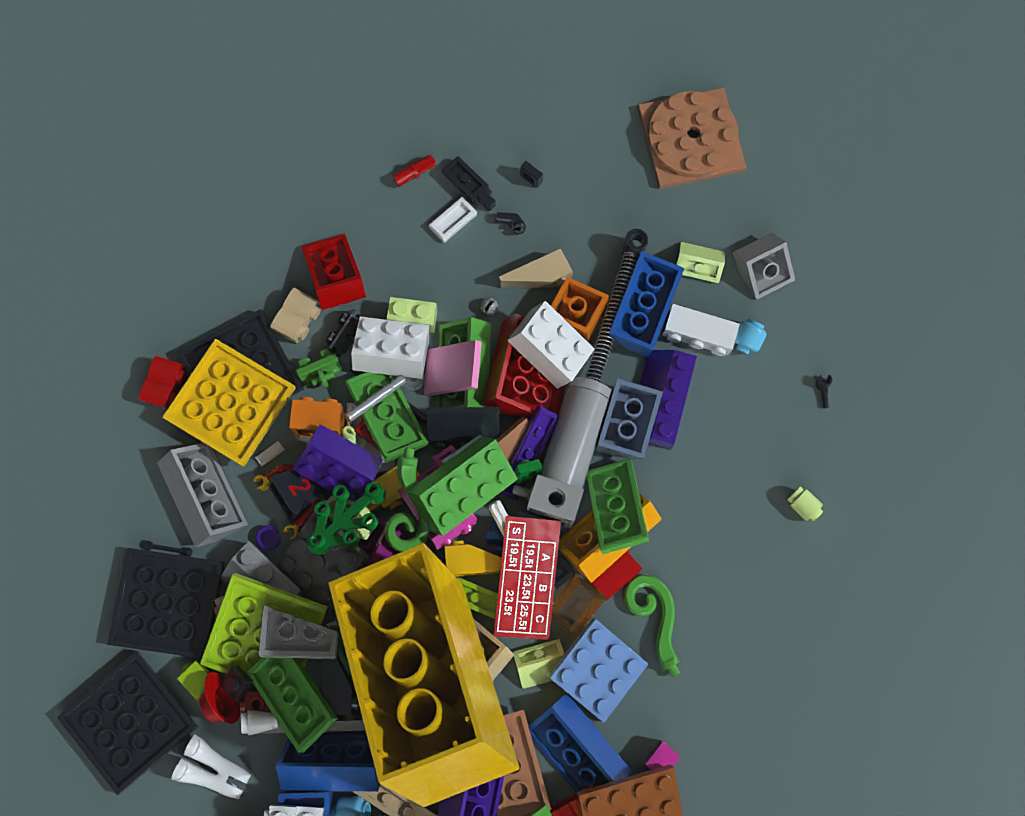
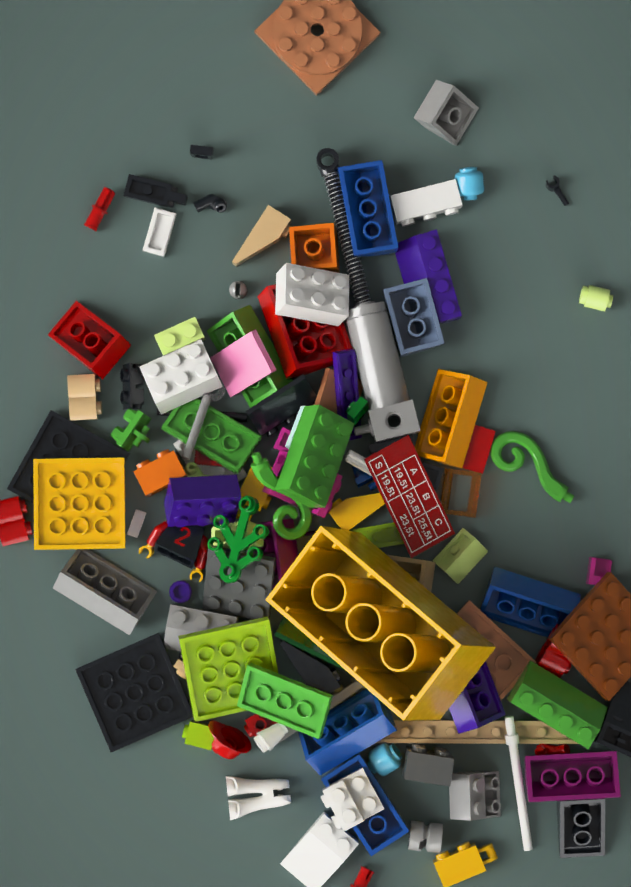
camera: 25 degrees left, 10 degrees up
(127, 722) = (166, 800): black plate -> none
(148, 545) = (89, 656): black hinge -> none
(236, 683) = (234, 718): black plate -> none
(294, 638) = (259, 656): light grey wing -> none
(598, 670) = (508, 533): medium blue plate -> none
(617, 506) = (445, 395): bright green tile -> none
(701, 262) = (390, 141): yellowish green panel -> none

